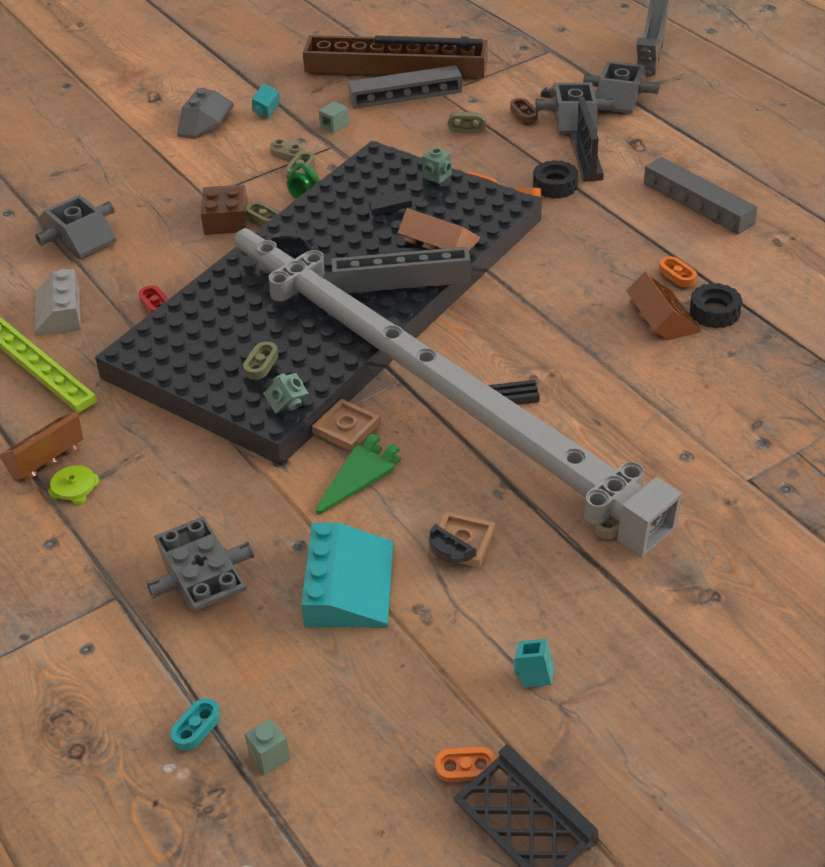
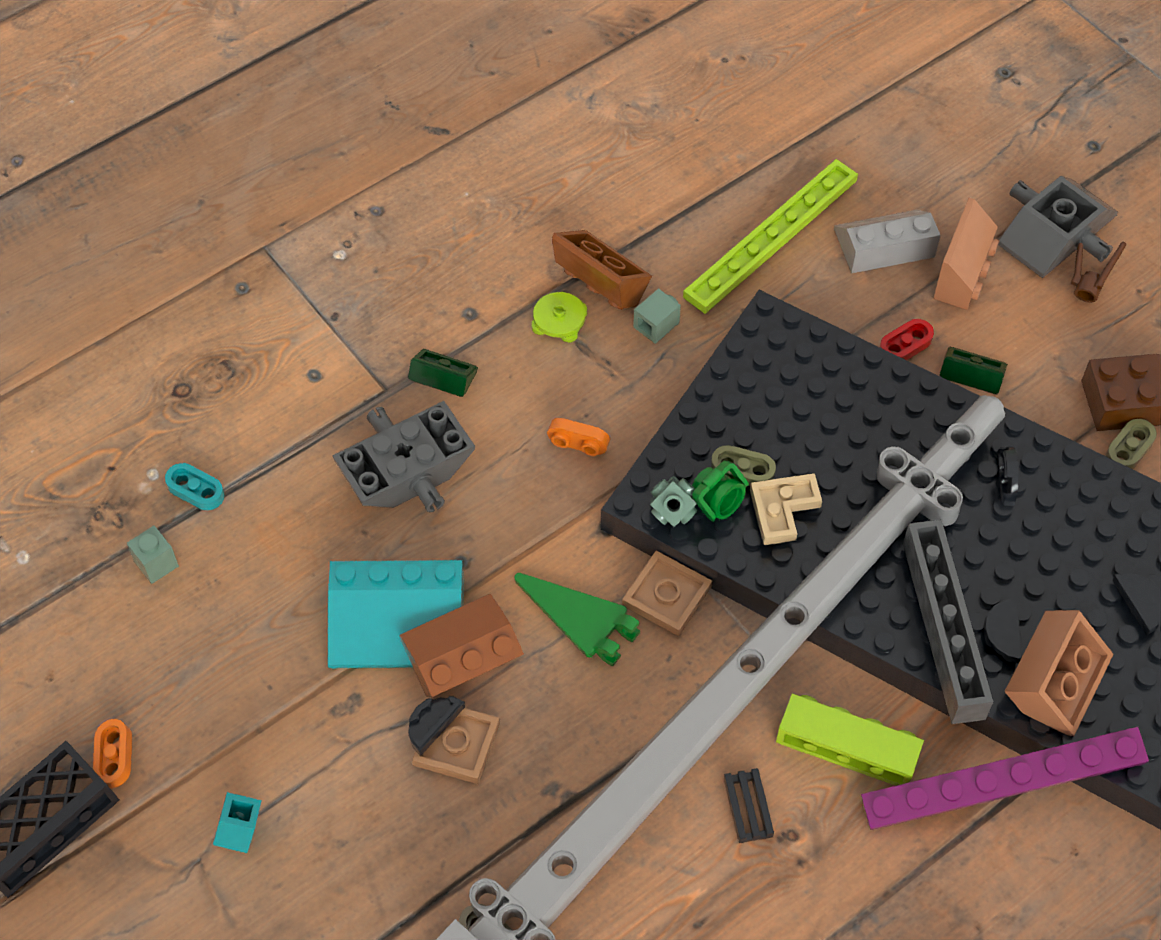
camera: 85 degrees right, 15 degrees up
(94, 266) = (967, 257): none -> nougat slope
(95, 423) = (657, 315): none -> sand green brick
(110, 557) = (441, 372): none -> dark green slope
(131, 216) = (1090, 284): none -> reddish brown plant
(184, 274) = (973, 370): none -> dark green slope
(199, 468) = (578, 436): none -> orange plate
(282, 363) = (717, 493): none -> green piece
(294, 346) = (776, 501): none -> tan plate
(387, 527) = (460, 645): none -> dark orange slope
(473, 337) = (849, 740): none -> lime brick
(504, 275) = (1005, 778): none -> magenta plate

